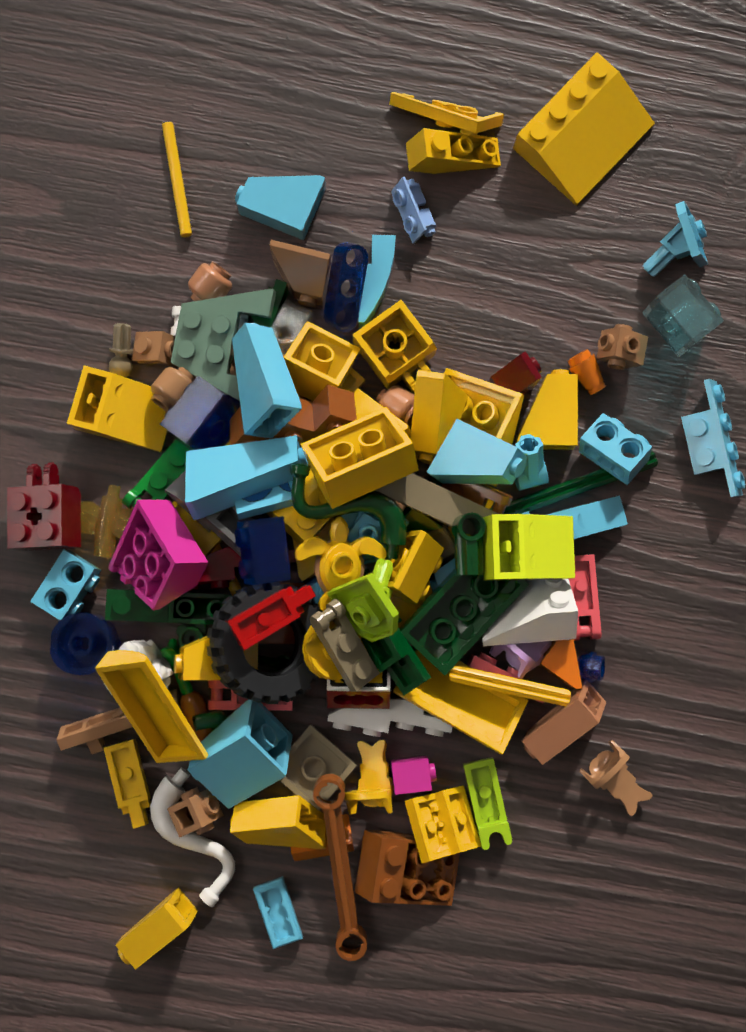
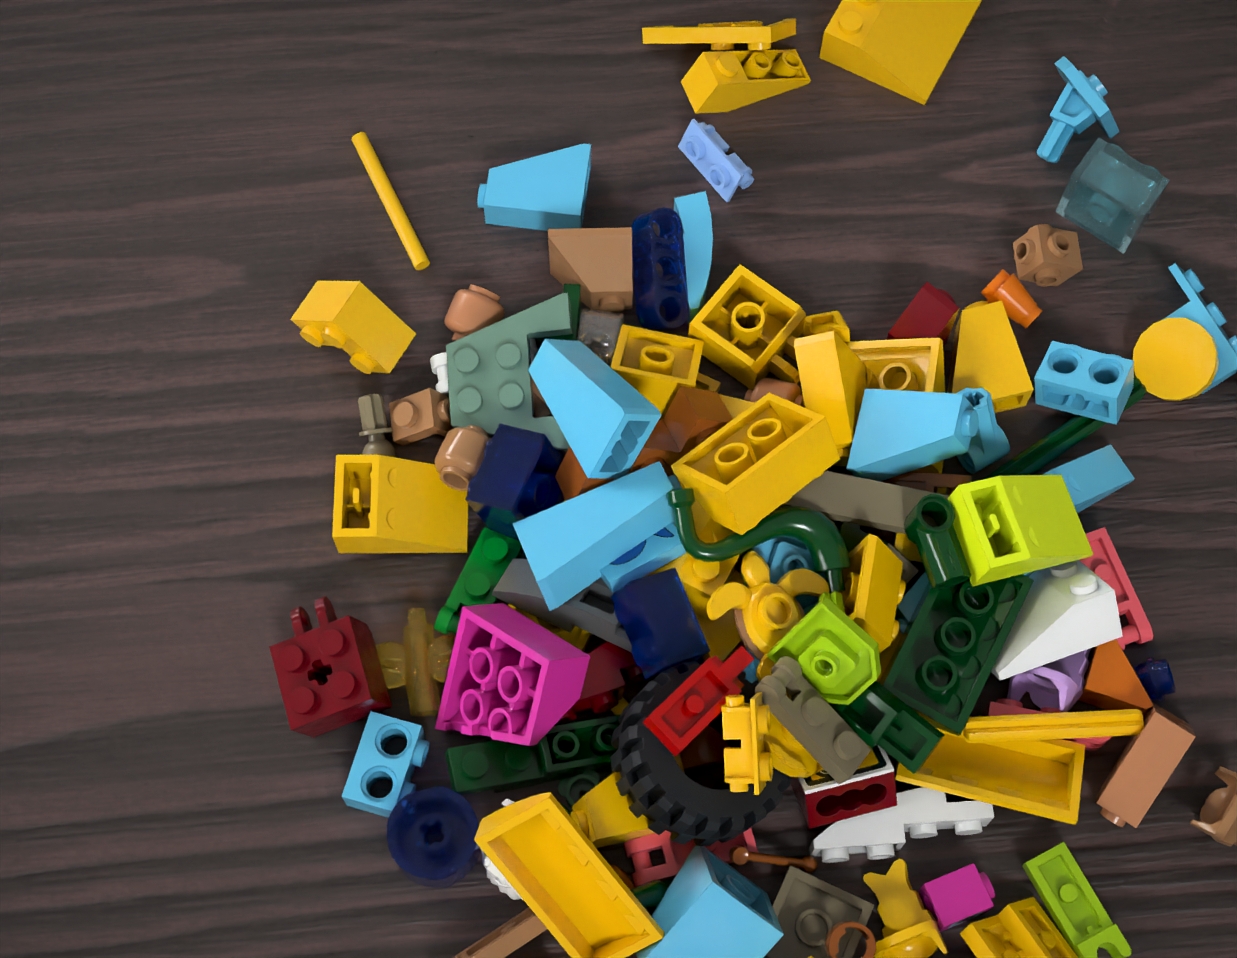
camera: 10 degrees left, 15 degrees down
(119, 265) = (355, 320): none -> yellow brick
(278, 711) = (741, 855): none -> dark orange hinge
(292, 666) = (750, 761): none -> yellow hinge
(451, 358) = (826, 322): none -> yellow tile
(685, 448) = (1175, 359): none -> yellow tile

